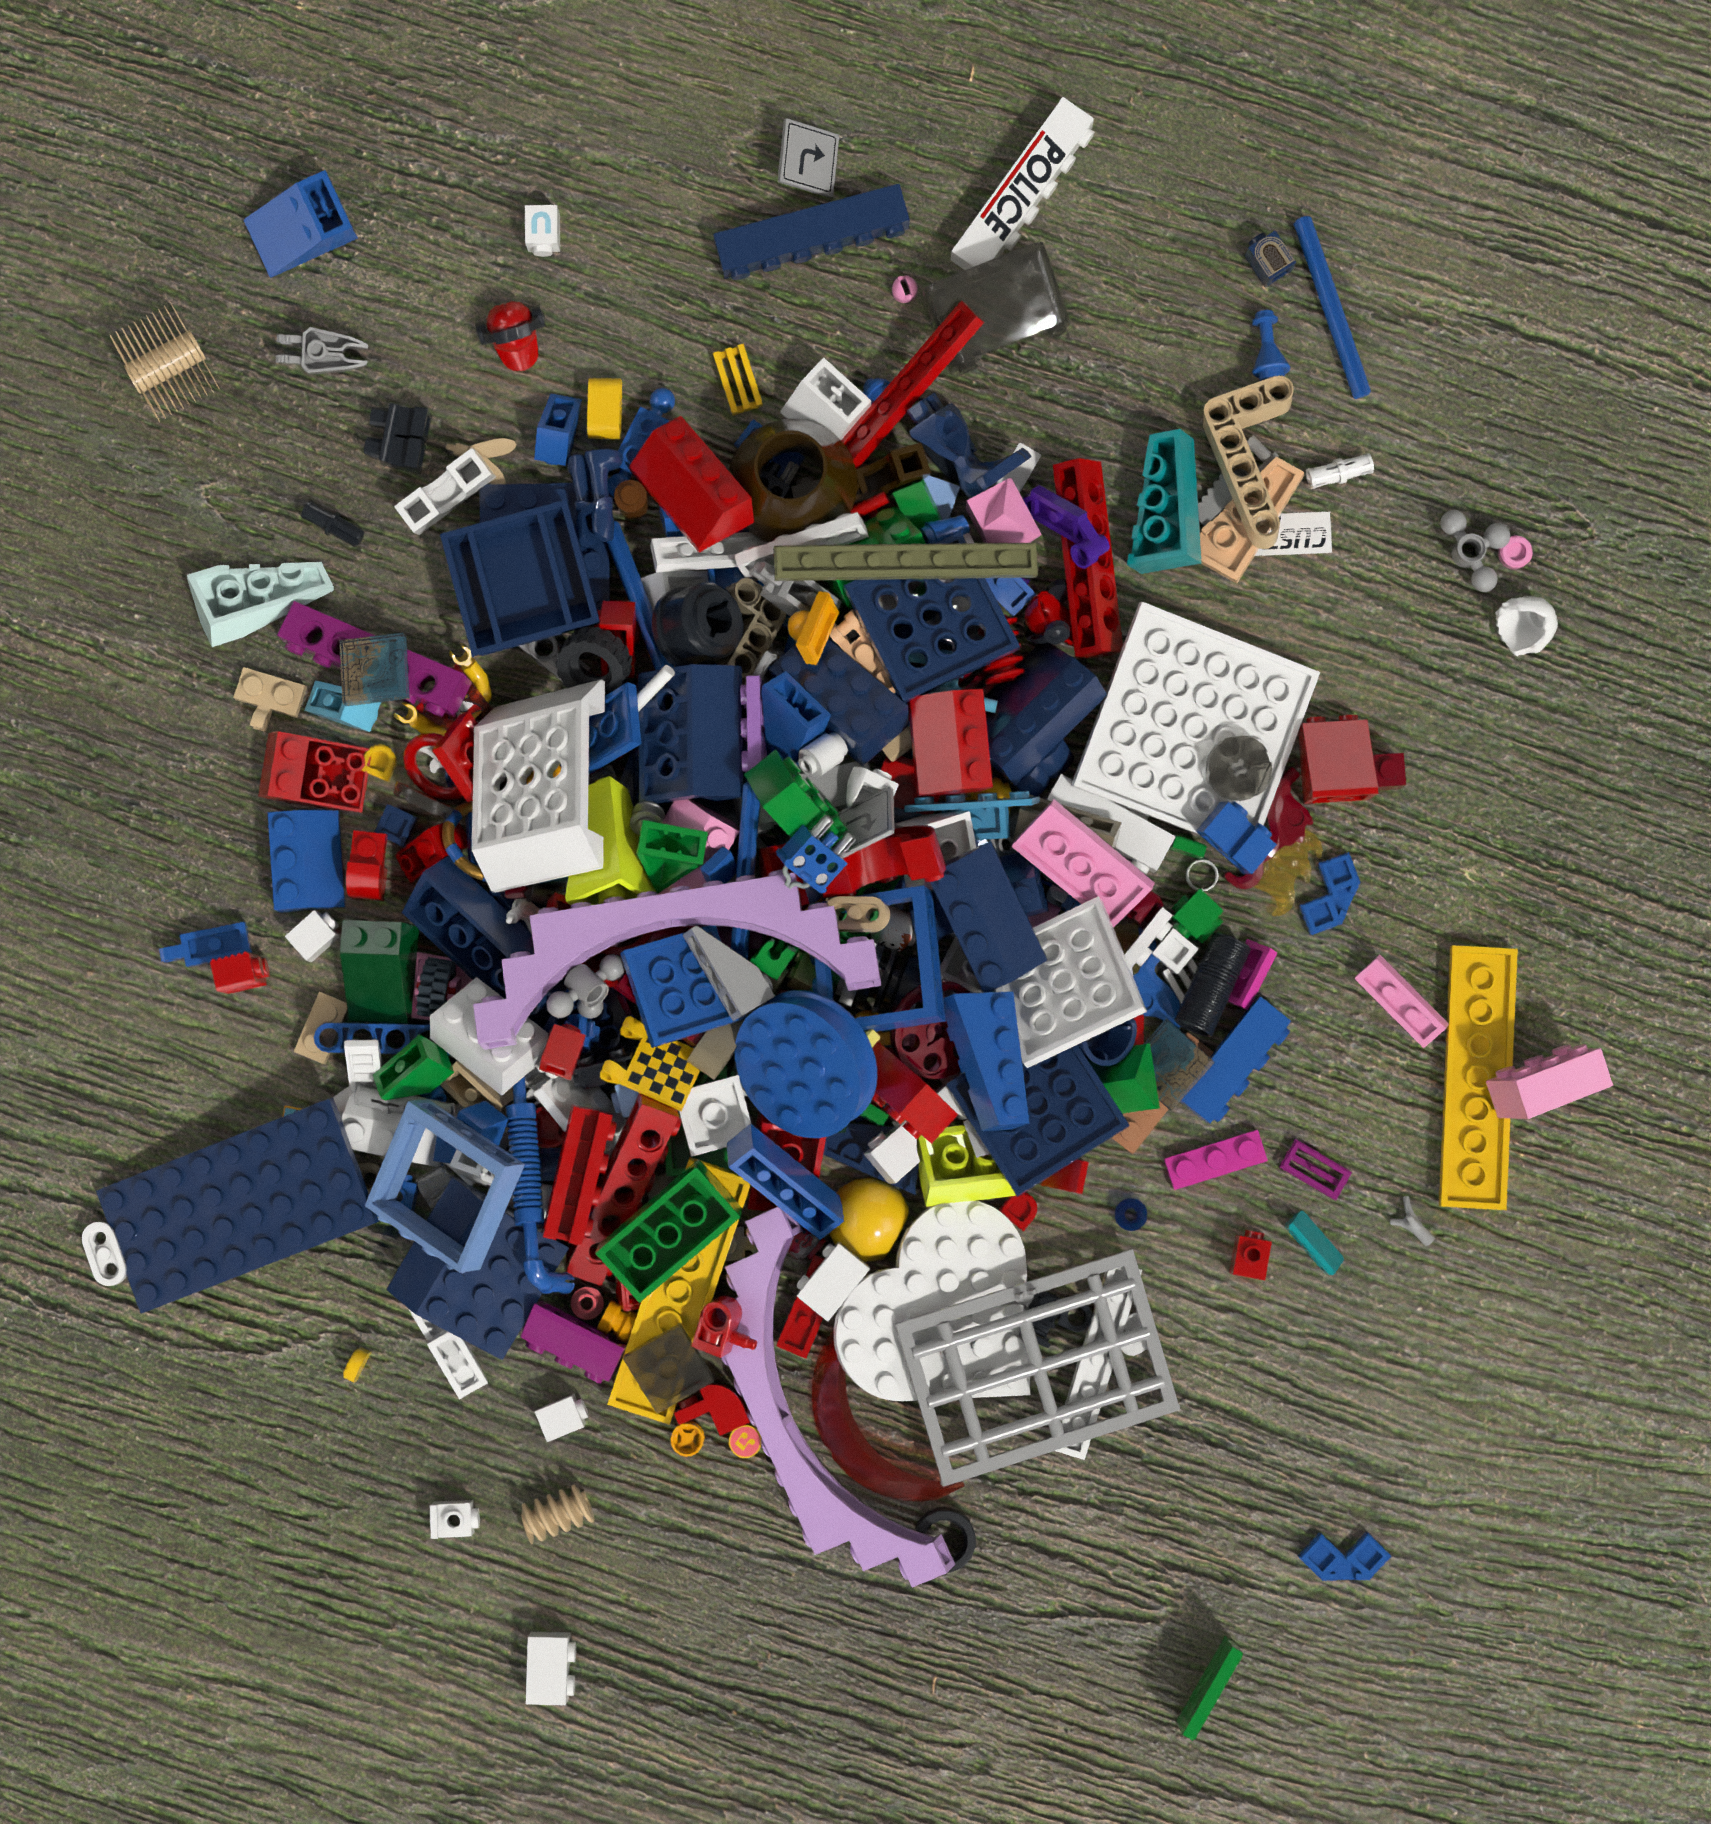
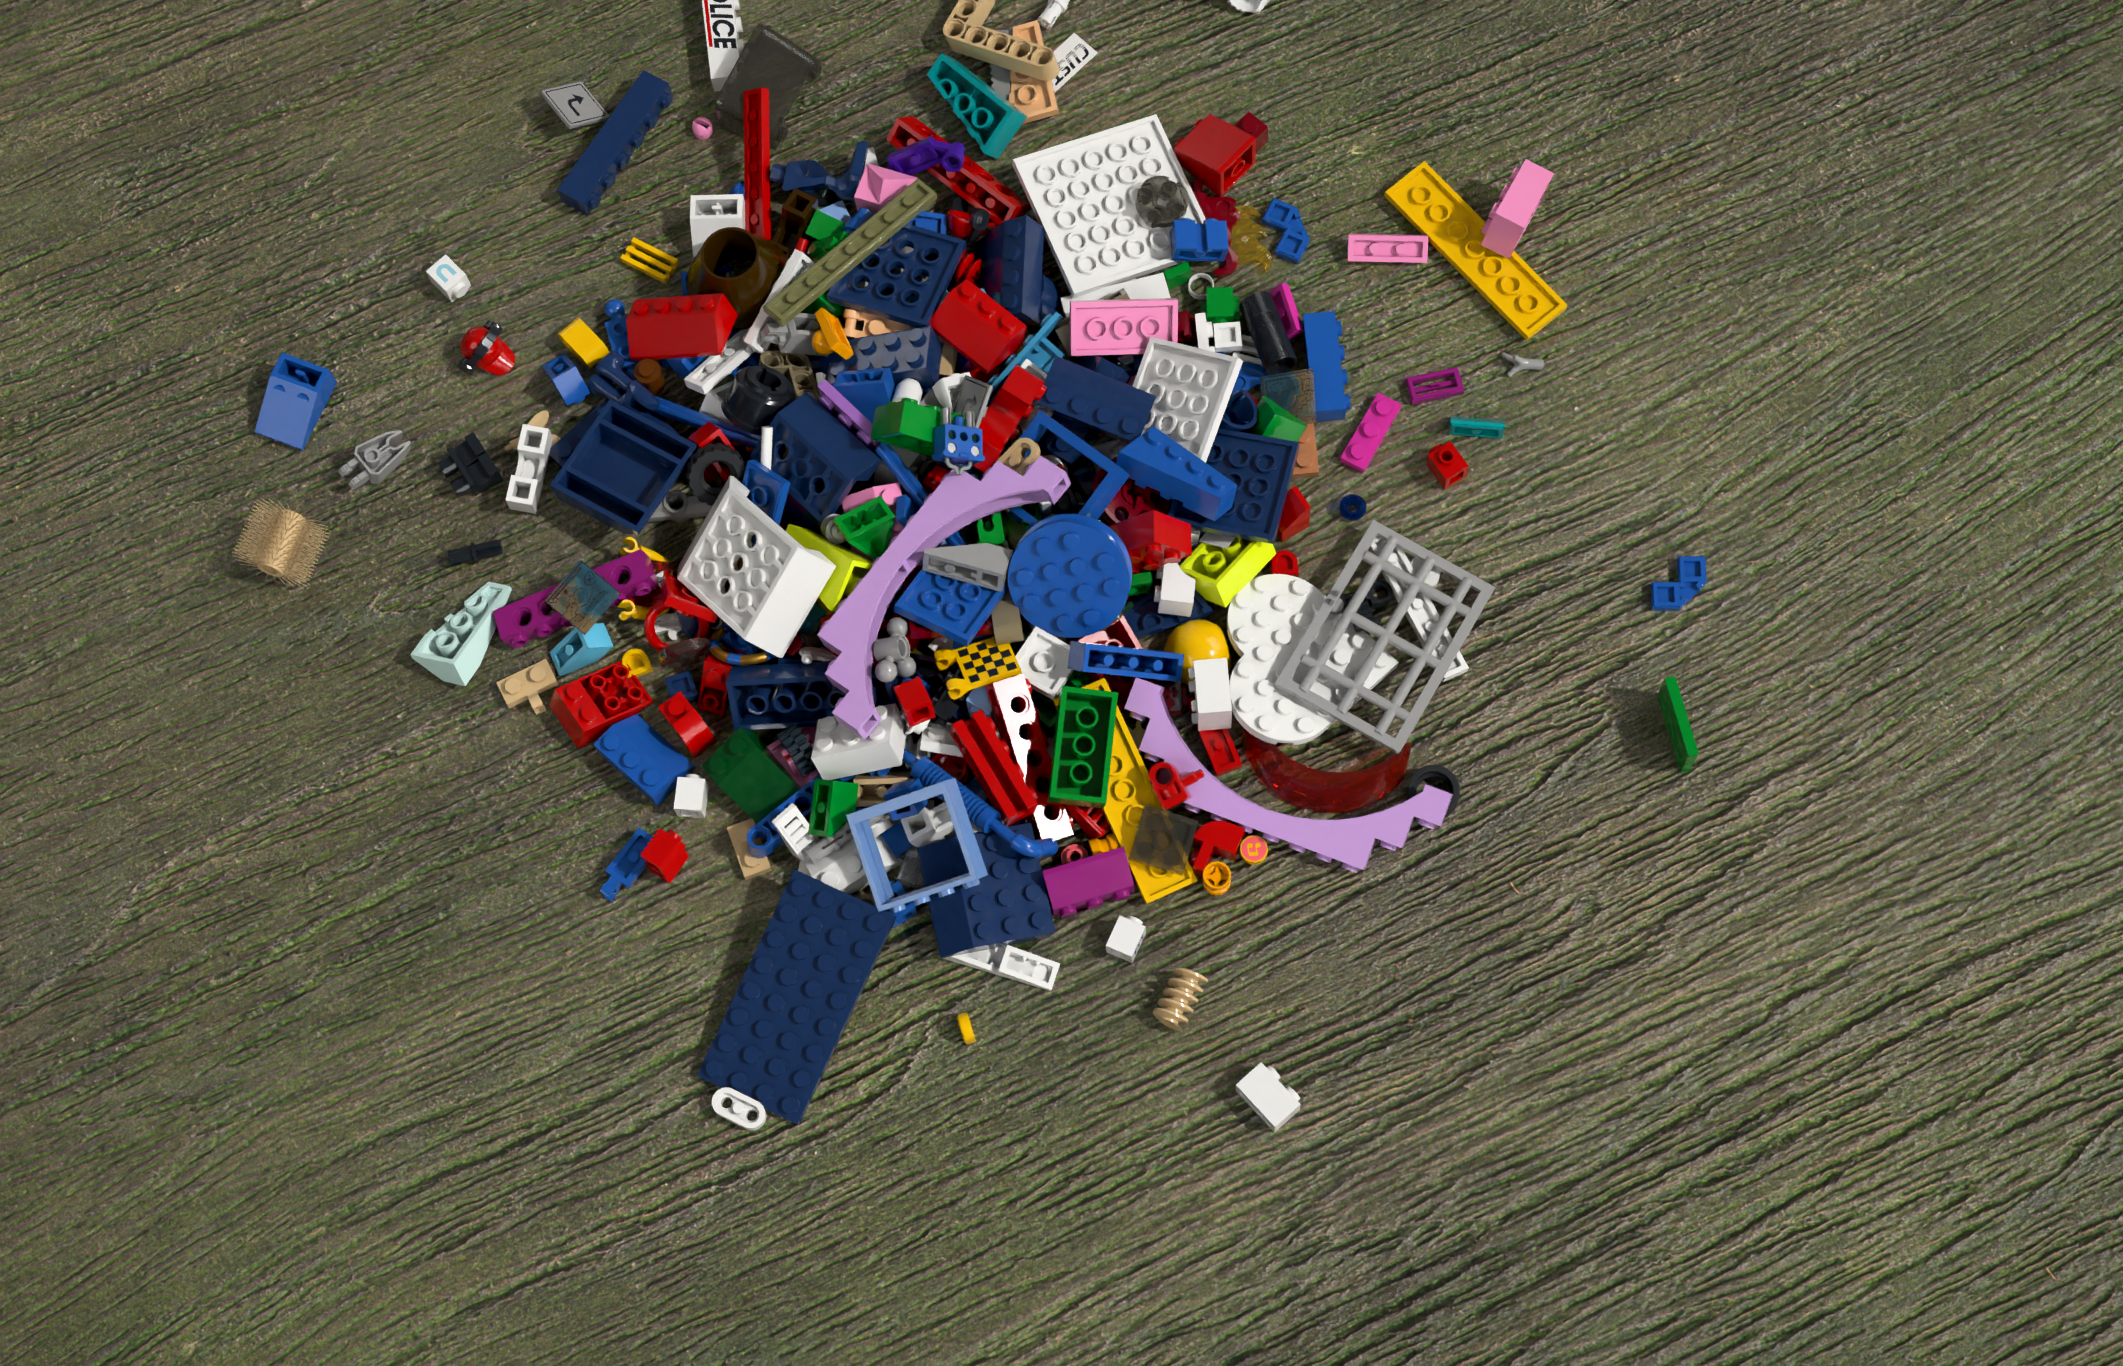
camera: 35 degrees left, 15 degrees down
(463, 1509) = (1115, 1072): white brick -> none

